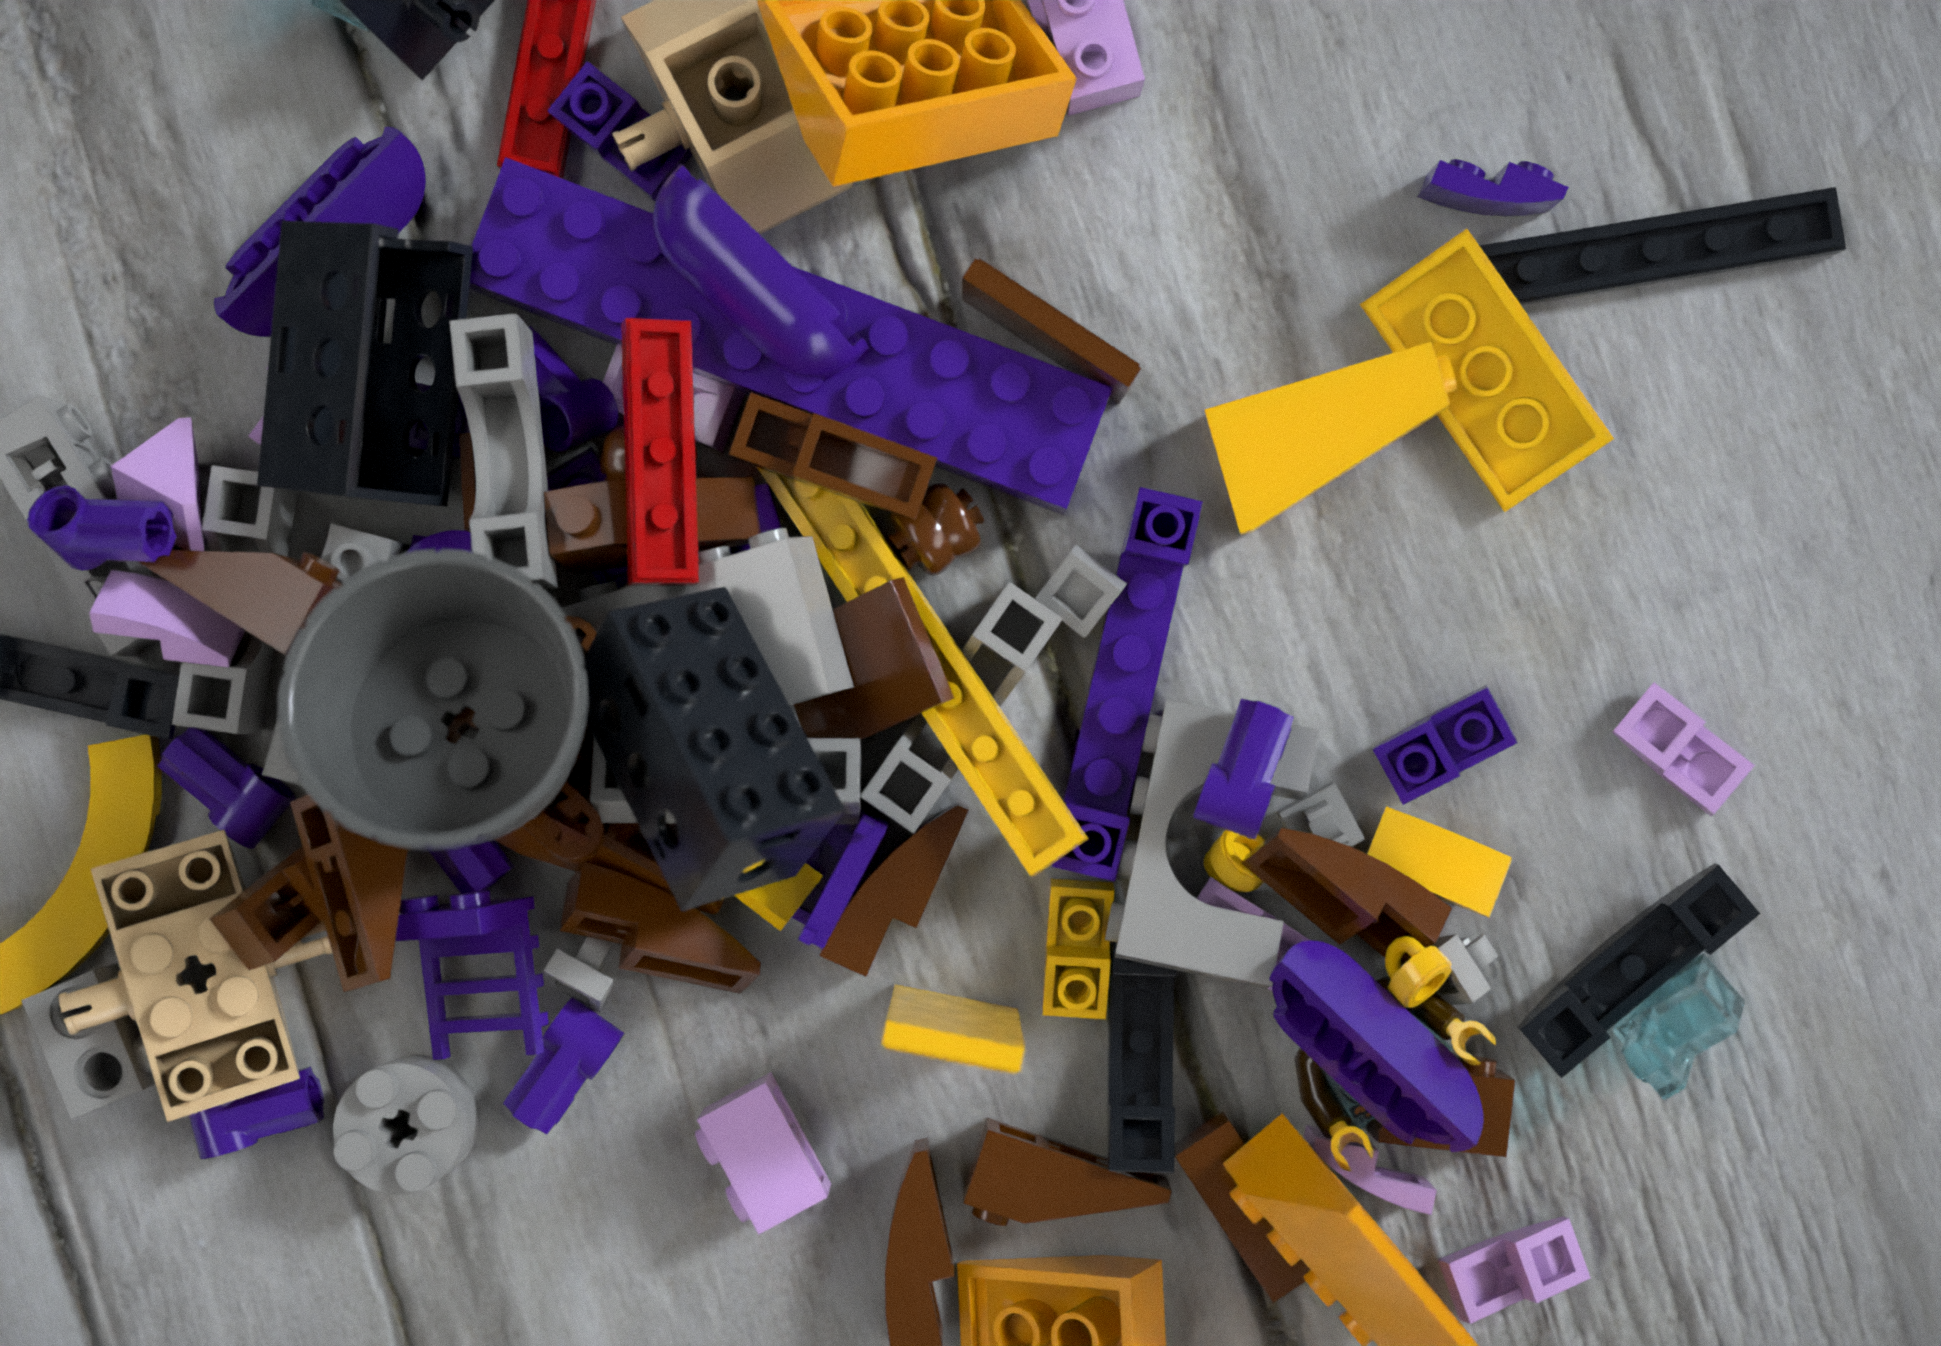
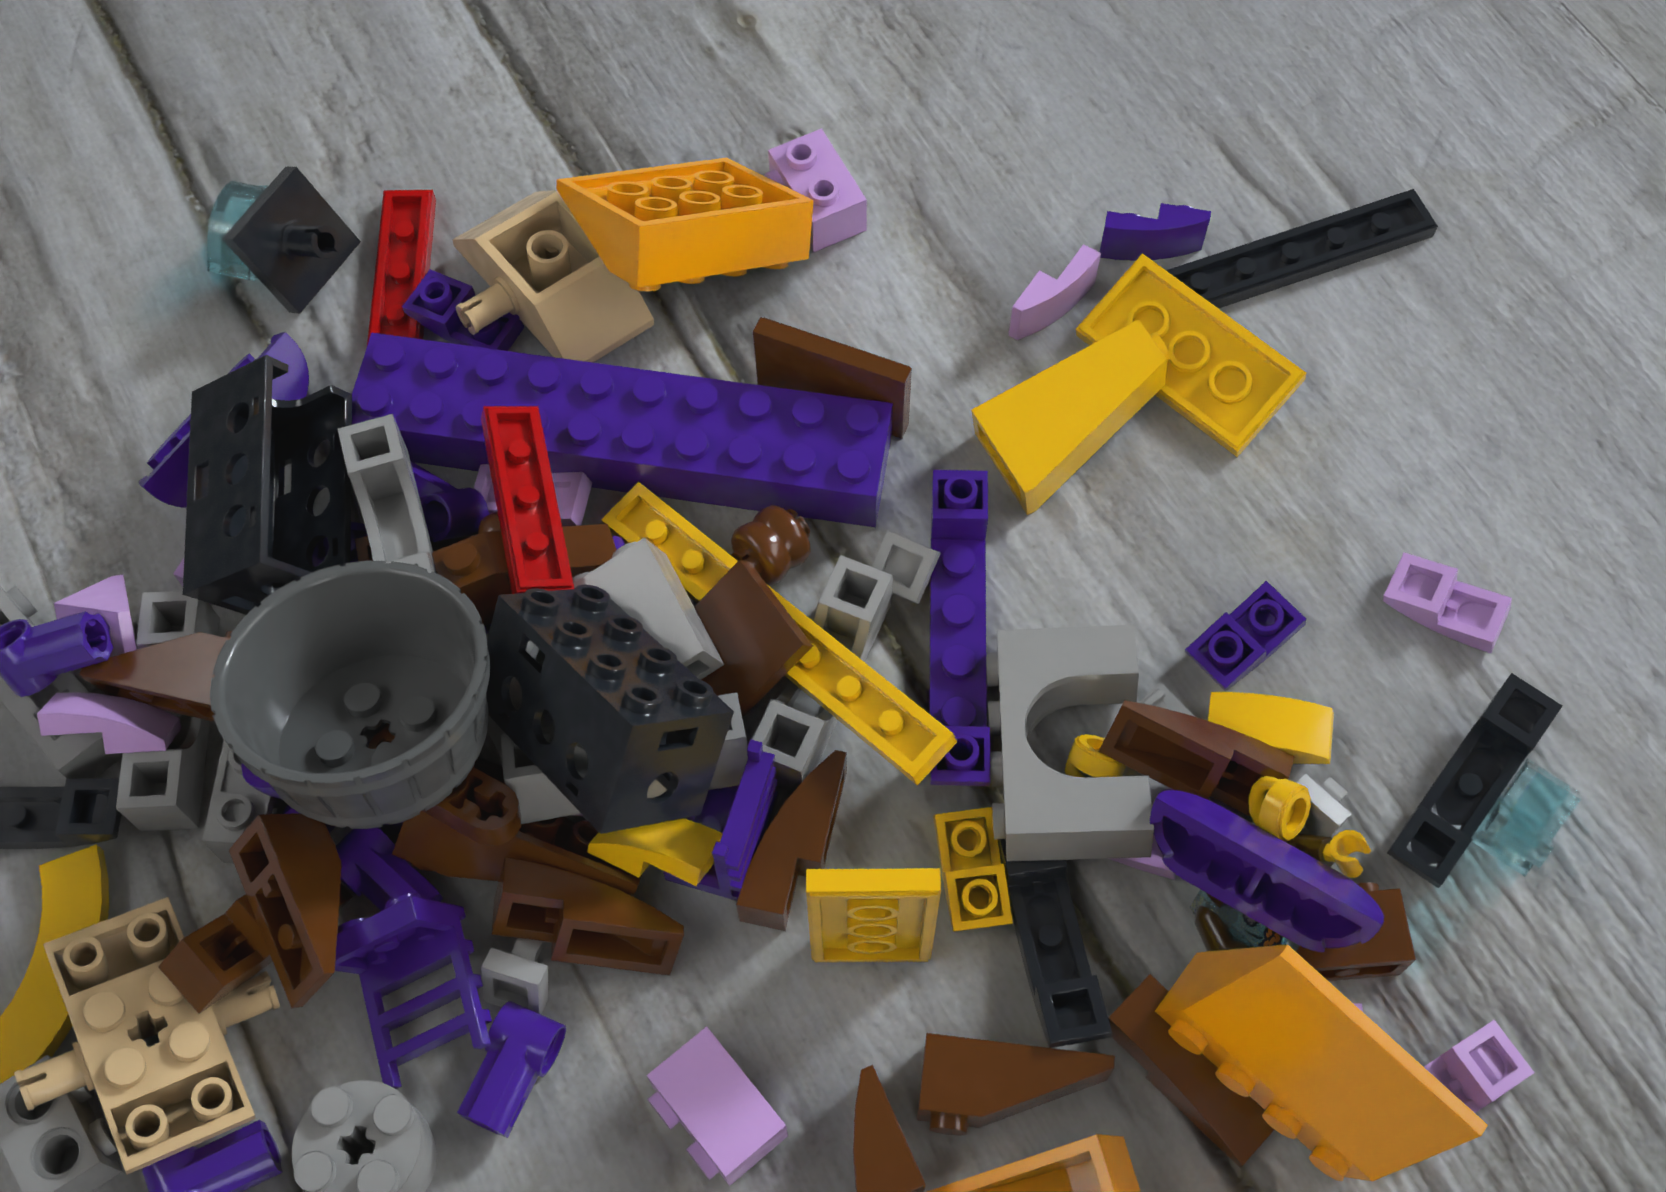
camera: 15 degrees left, 25 degrees down
(233, 791) = (164, 871): dark purple piece -> none
(750, 281) = (585, 369): dark purple brick -> none
(832, 456) = (670, 493): reddish brown slope -> none
(1240, 782) = (1078, 667): dark purple piece -> none
(1336, 259) = (1051, 298): none -> lavender slope

